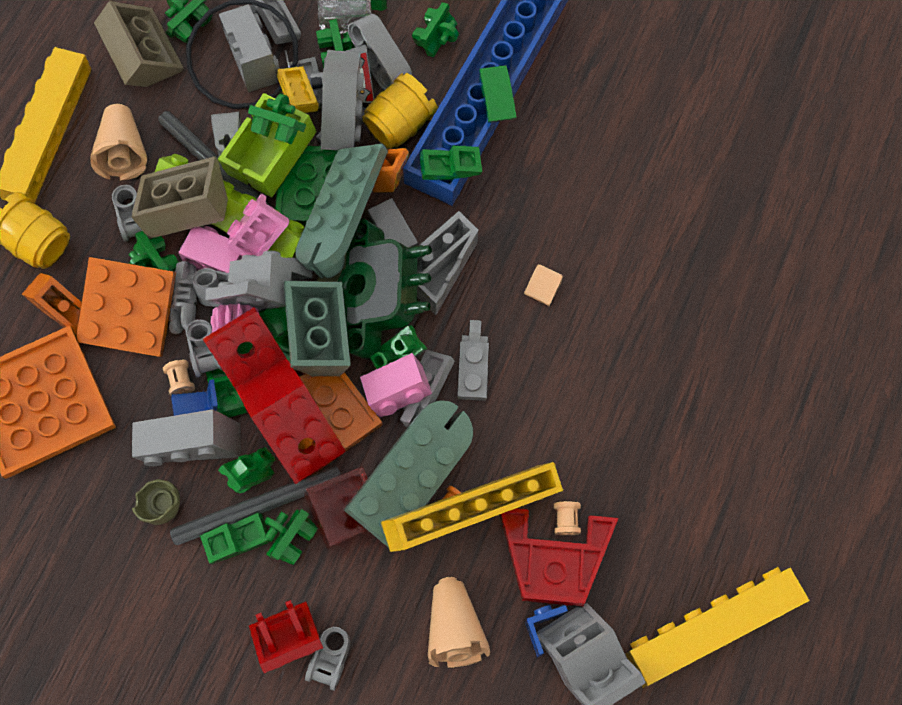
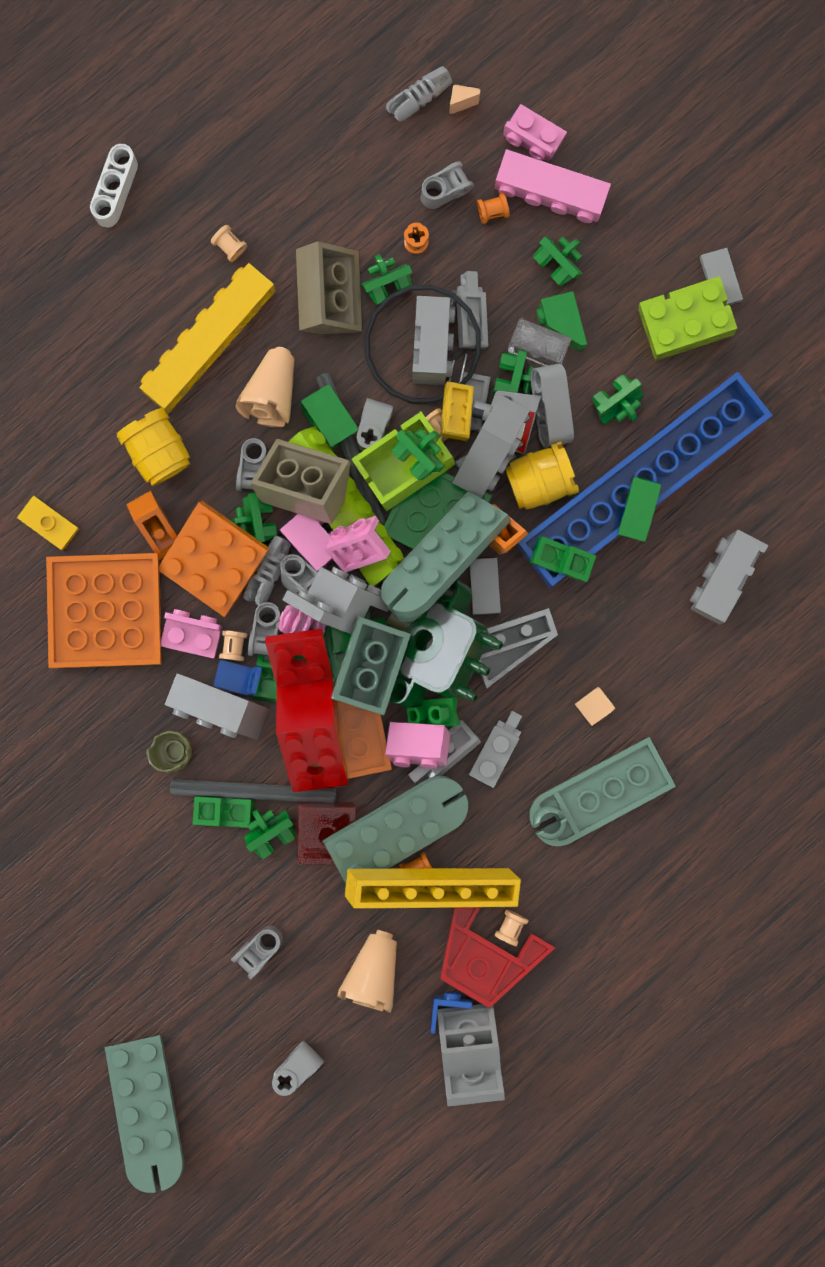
camera: 25 degrees right, 15 degrees up
(31, 44) = (229, 243): none -> light nougat bush
(133, 385) = (191, 635): none -> bright pink bracket
(181, 139) = (329, 416): none -> green panel
(248, 470) = (258, 761): green hips -> none
(285, 636) = (229, 919): red plate -> none
(587, 359) = (601, 794): none -> sand green plate
(602, 123) = (726, 576): none -> light grey wedge
(717, 626) = (591, 1077): yellow brick -> none

